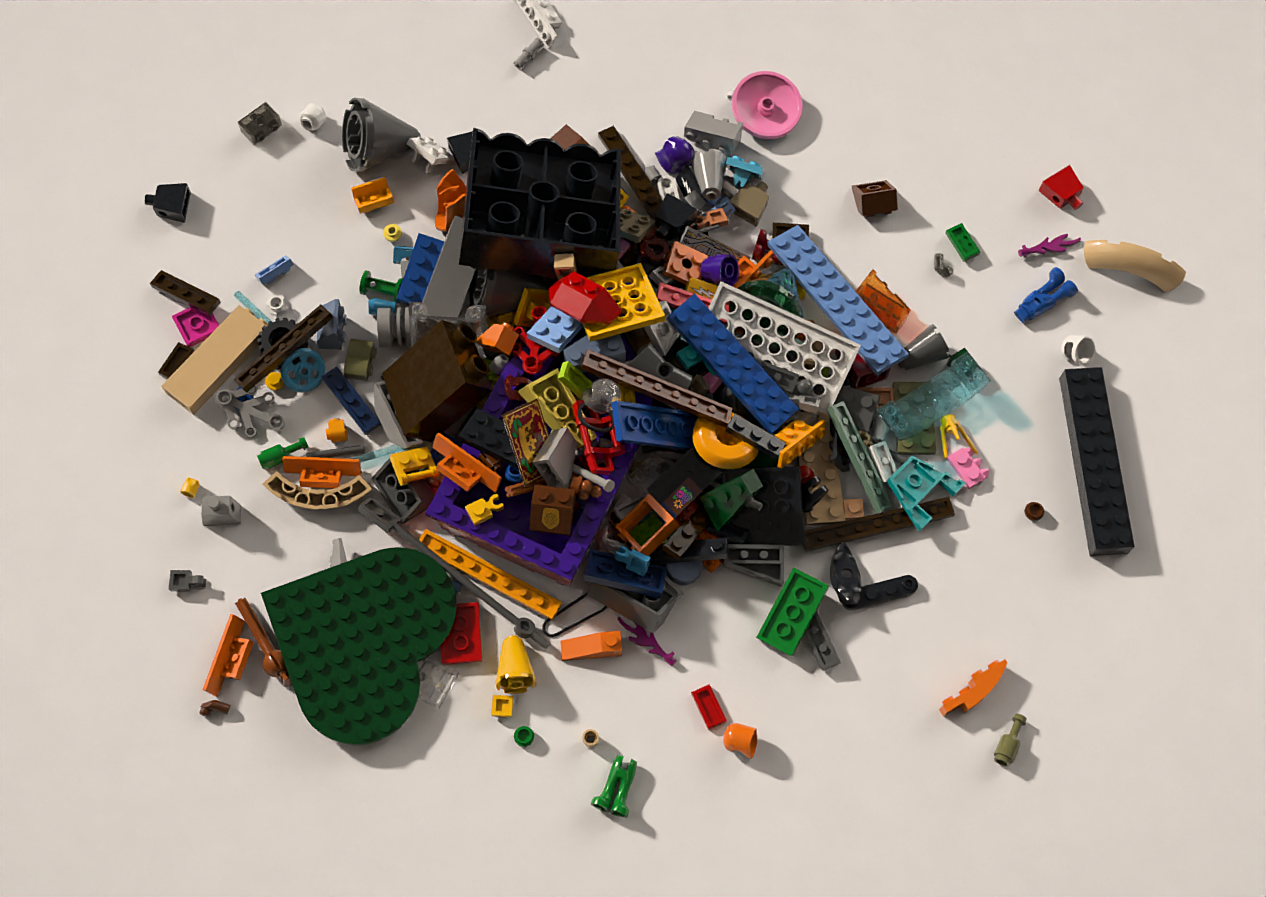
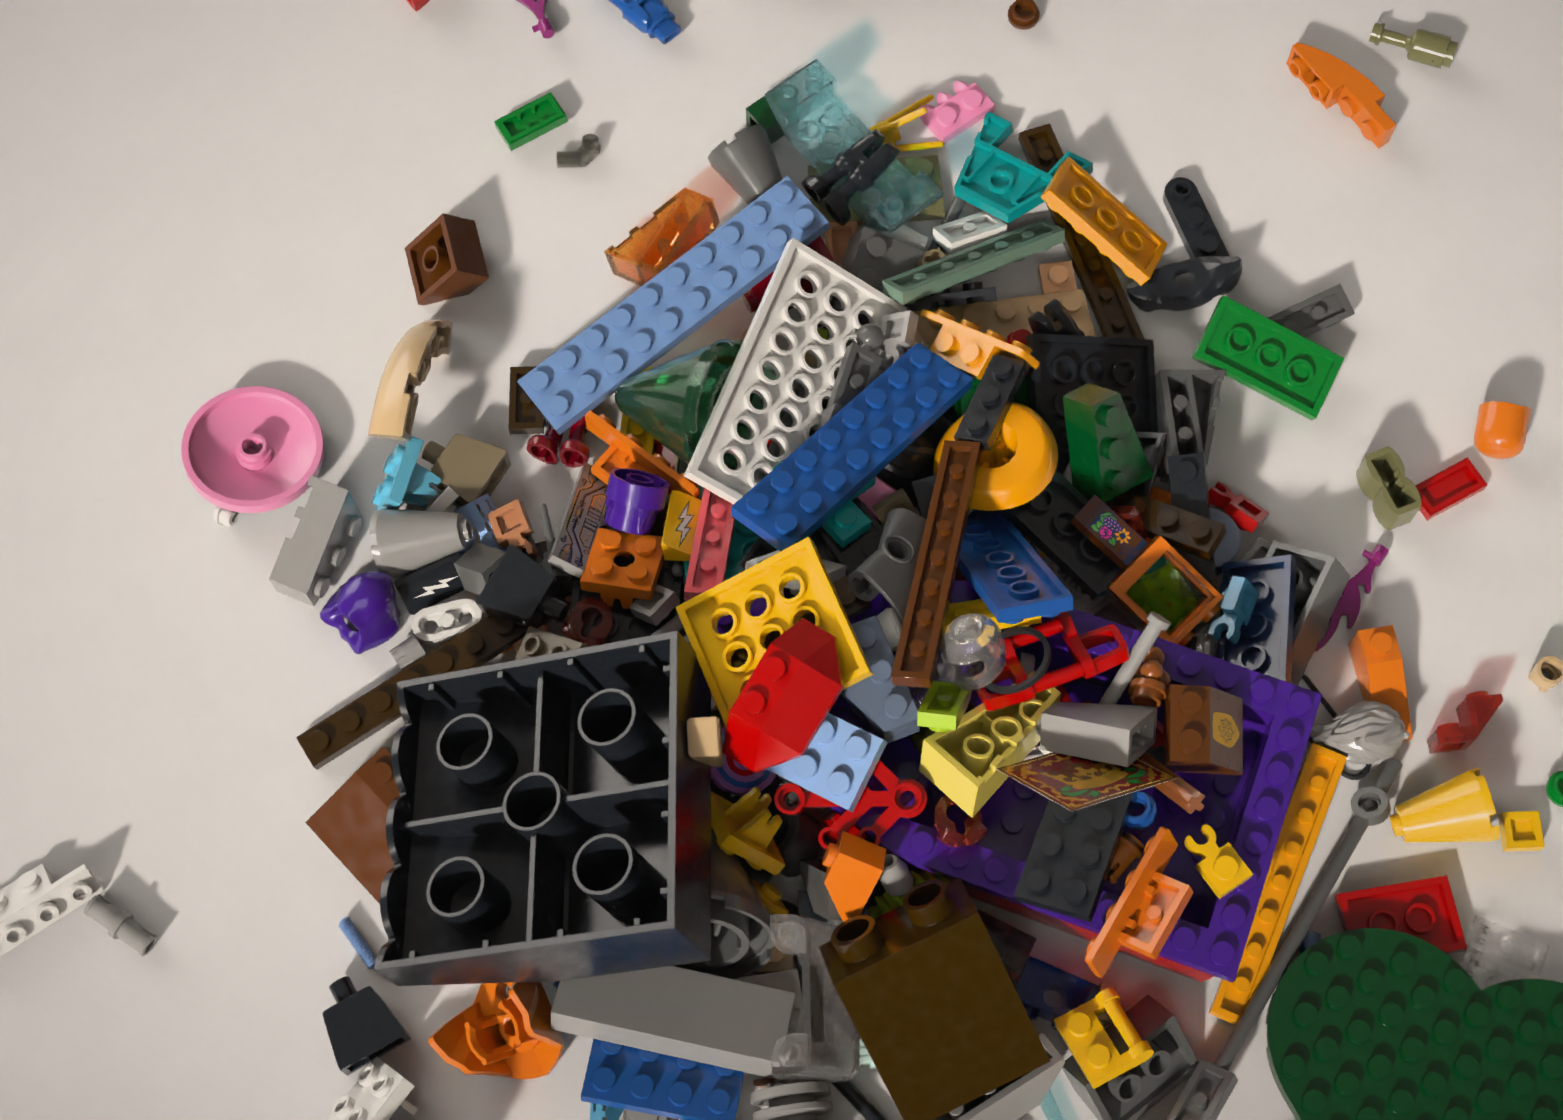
camera: 90 degrees left, 0 degrees up
(564, 629) = (1363, 733): none -> light grey hair
(568, 692) = (1472, 715): none -> clear red slope
(700, 586) = (1241, 509): none -> red plate
(702, 667) = (1392, 494): none -> olive brick
(801, 167) = (405, 369): none -> tan brick
(882, 529) = (1104, 221): none -> light orange plate
(921, 401) = (865, 163): none -> black piece

